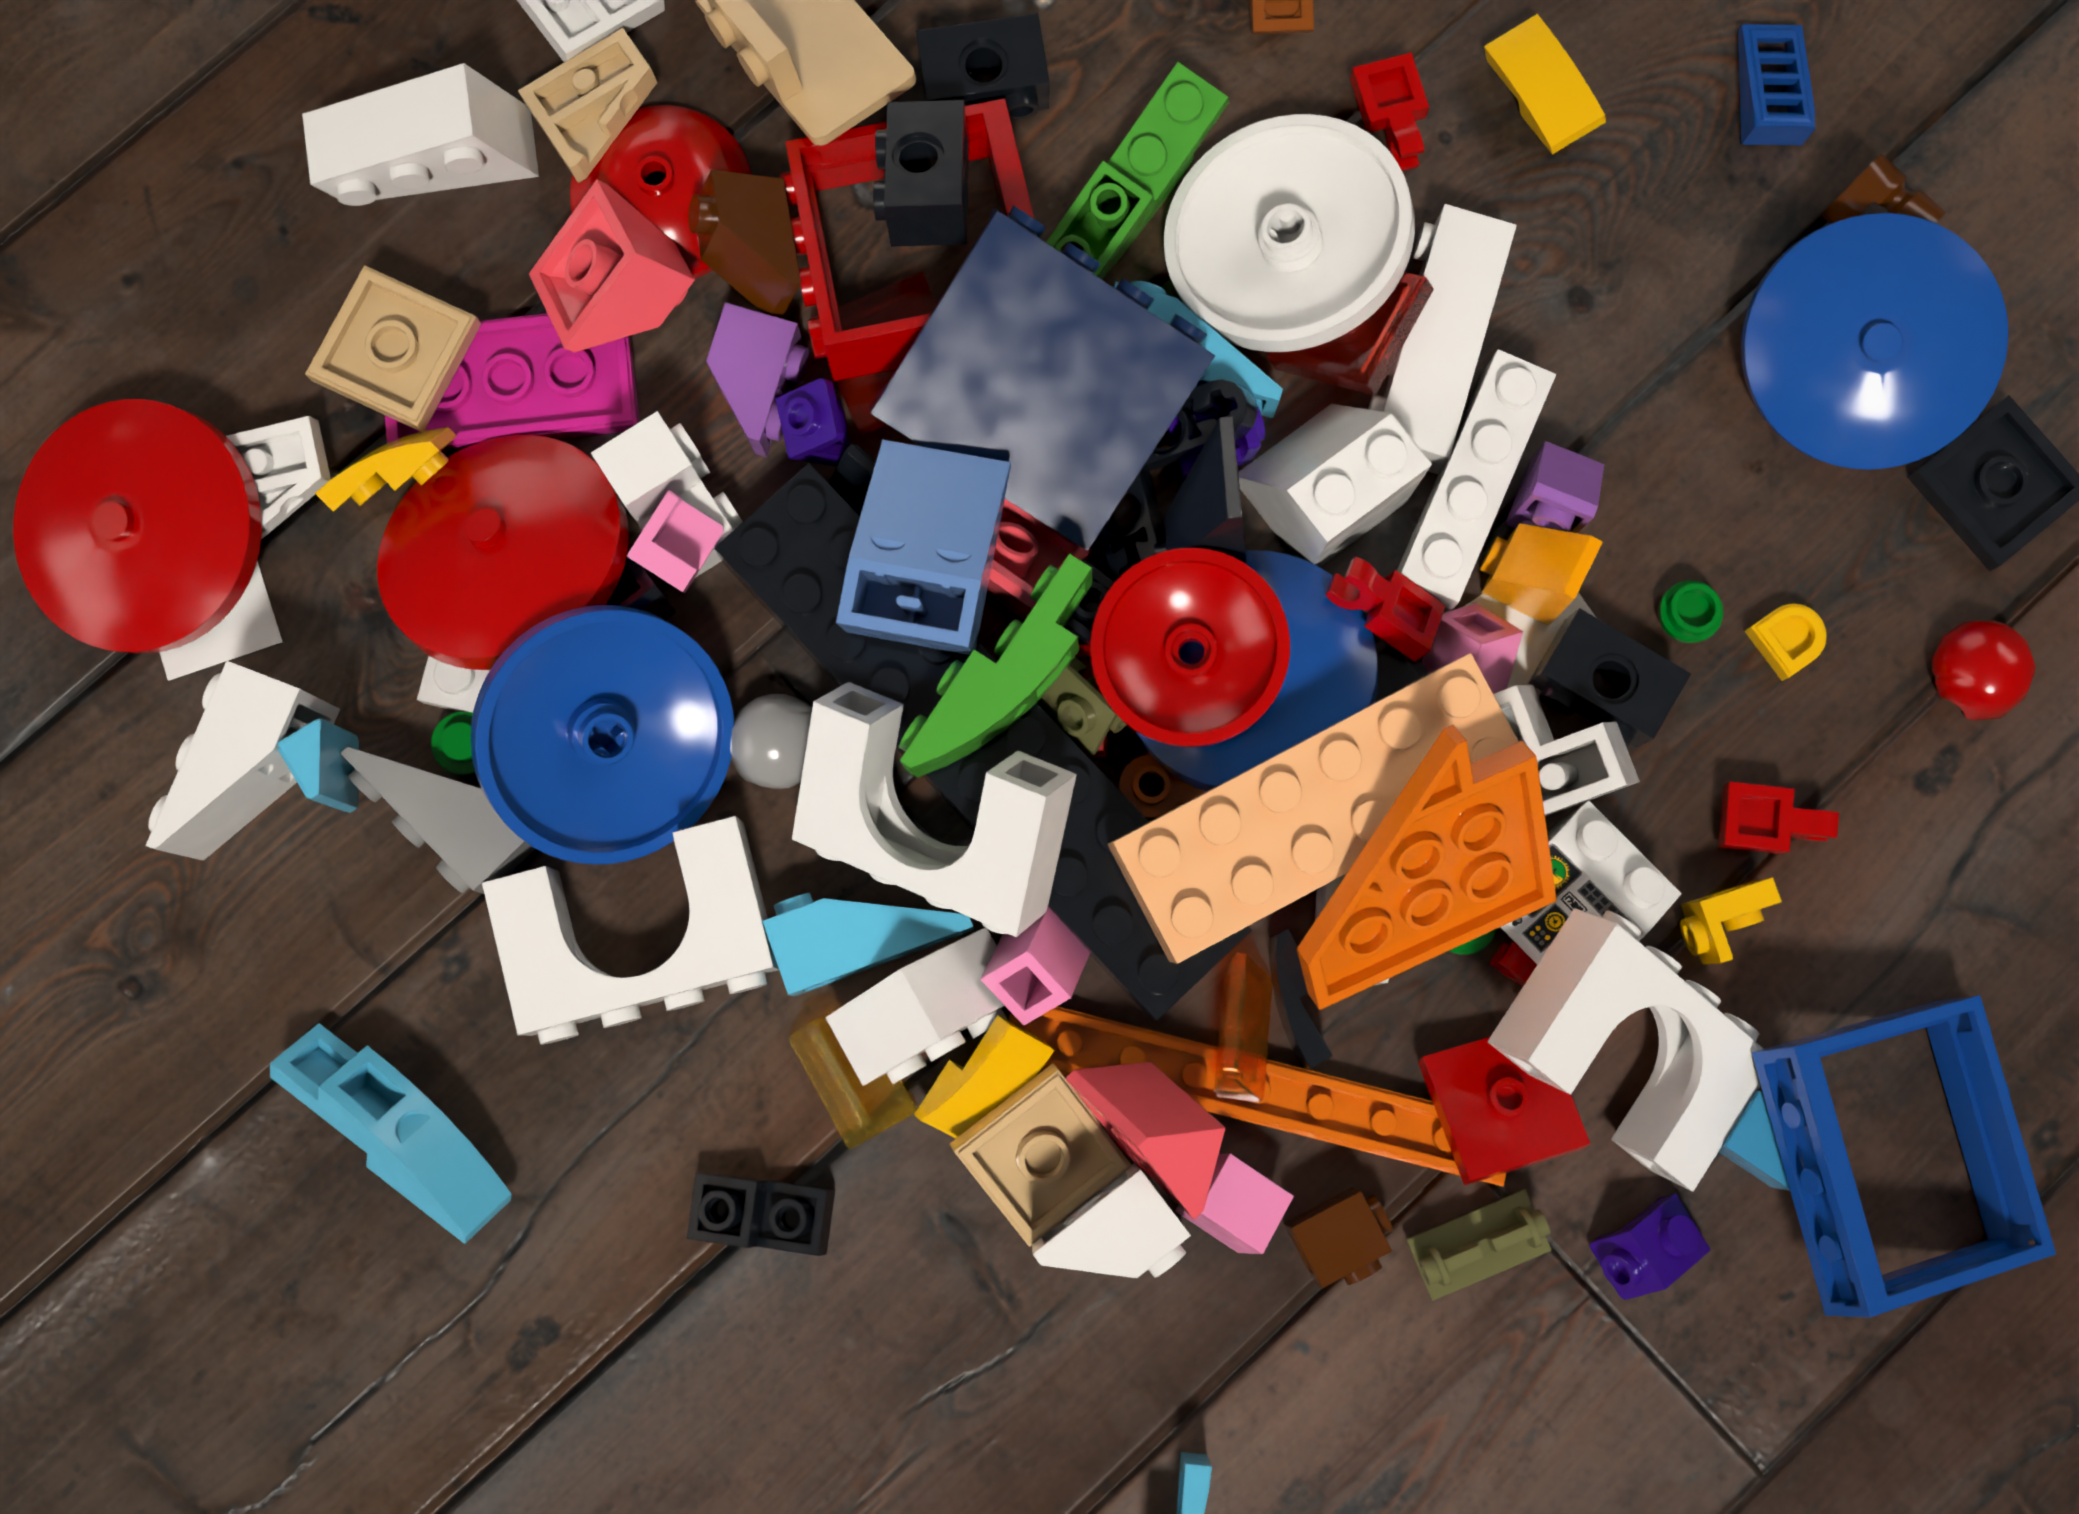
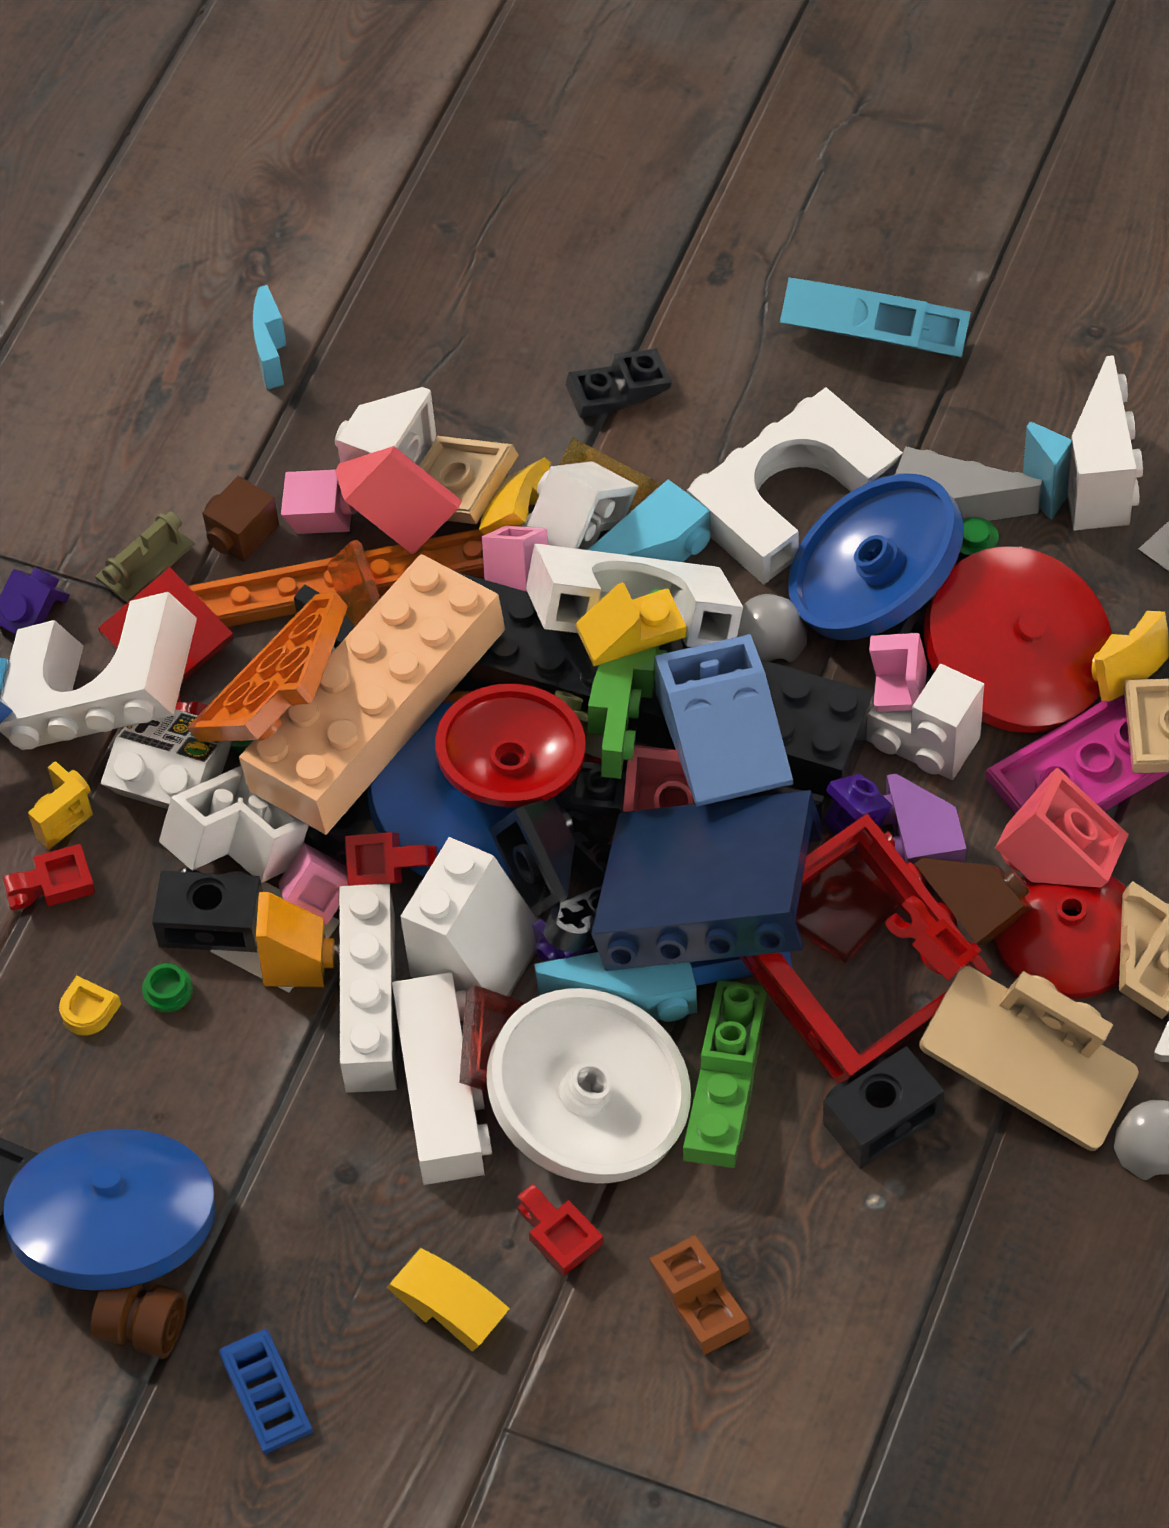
camera: 160 degrees right, 25 degrees down
(827, 169) = (935, 940): none -> red plate
(924, 173) = (866, 994): black brick -> none
(972, 713) = (628, 625): none -> yellow slope
(1557, 490) = (301, 998): medium lavender slope -> none

